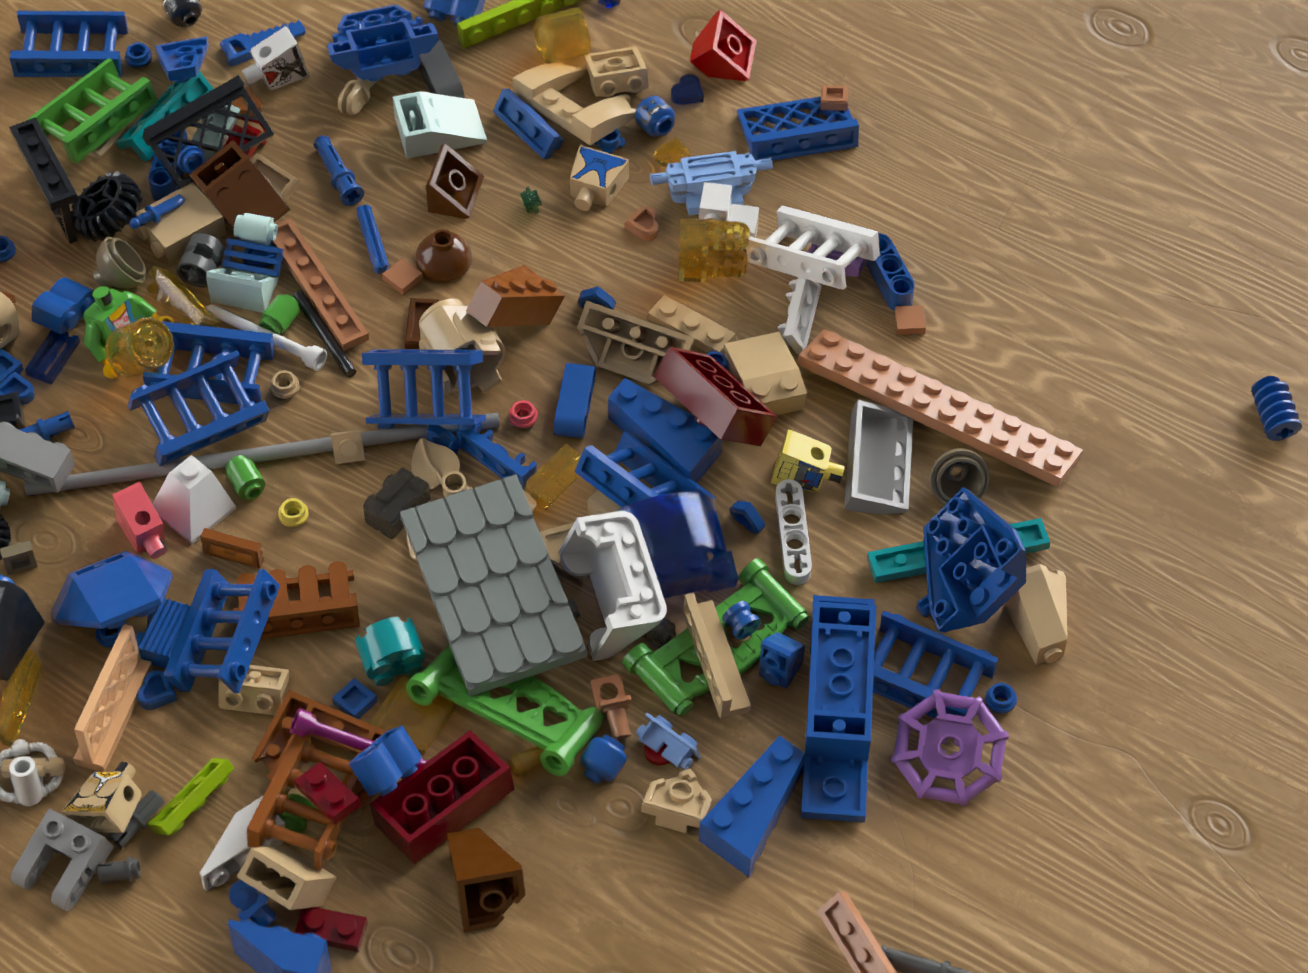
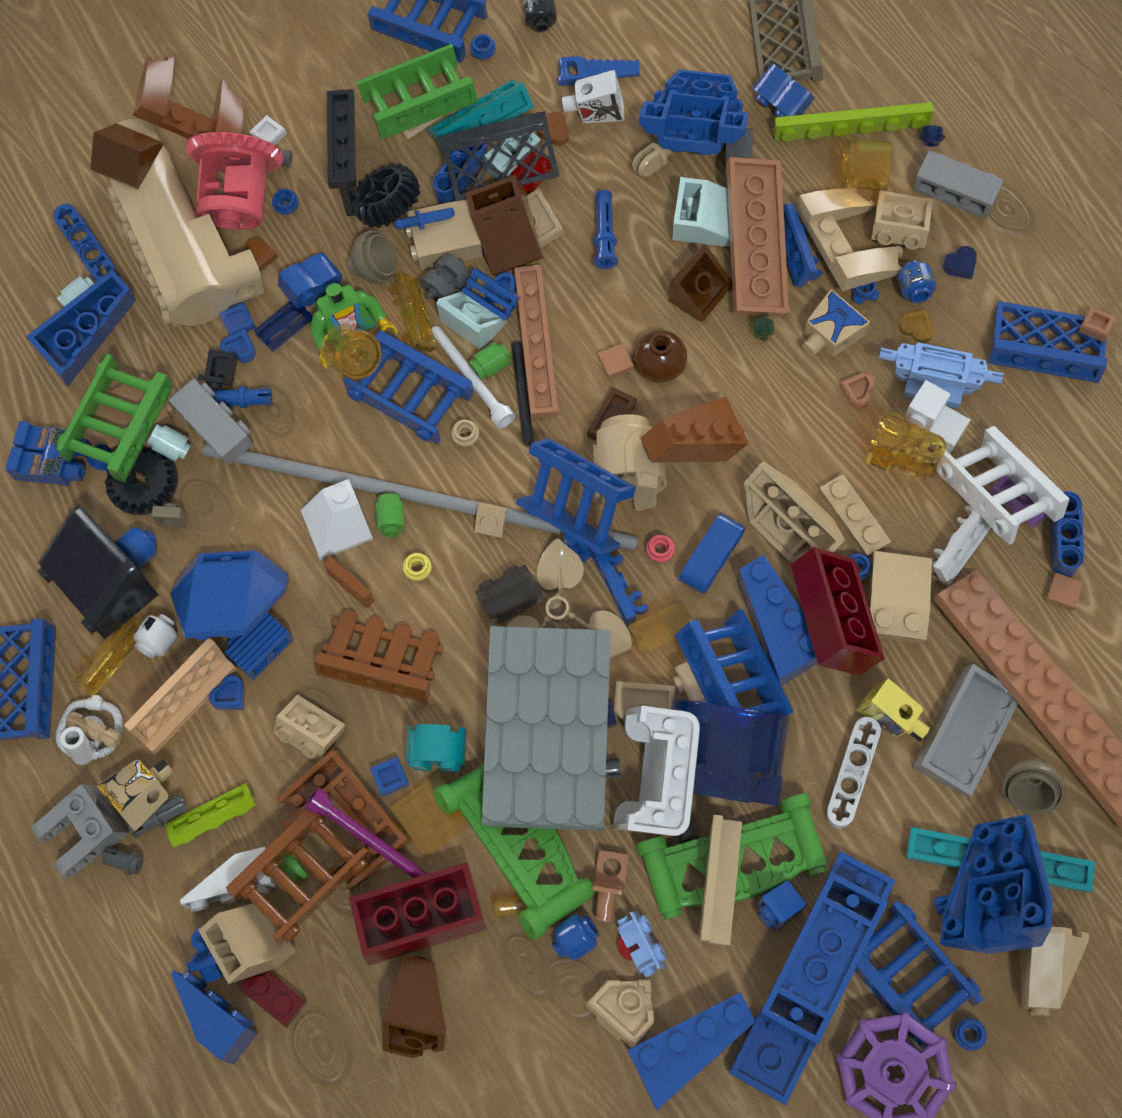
camera: 30 degrees right, 15 degrees up
(56, 663) = (155, 636): none -> white head
(139, 520) = (280, 515): coral torso -> none
(182, 58) = (516, 65): blue wing -> none
(196, 160) = (472, 178): blue plate -> none
(197, 435) = (363, 459): blue fence -> none
(201, 622) = (285, 652): blue fence -> none
(255, 228) = (502, 268): light aqua brick -> none
(327, 793) = (309, 881): dark red plate -> none
(372, 239) = (605, 312): blue axle -> none
(386, 761) = (375, 868): blue brick -> none
(489, 125) = (757, 237): none -> nougat plate
(597, 296) = (777, 456): blue tile -> none
(653, 27) = (957, 184): none -> light grey brick
(723, 49) = (1014, 233): red slope -> none
(741, 620) = (759, 853): blue wheel -> none
(748, 516) = (816, 740): blue tile -> none

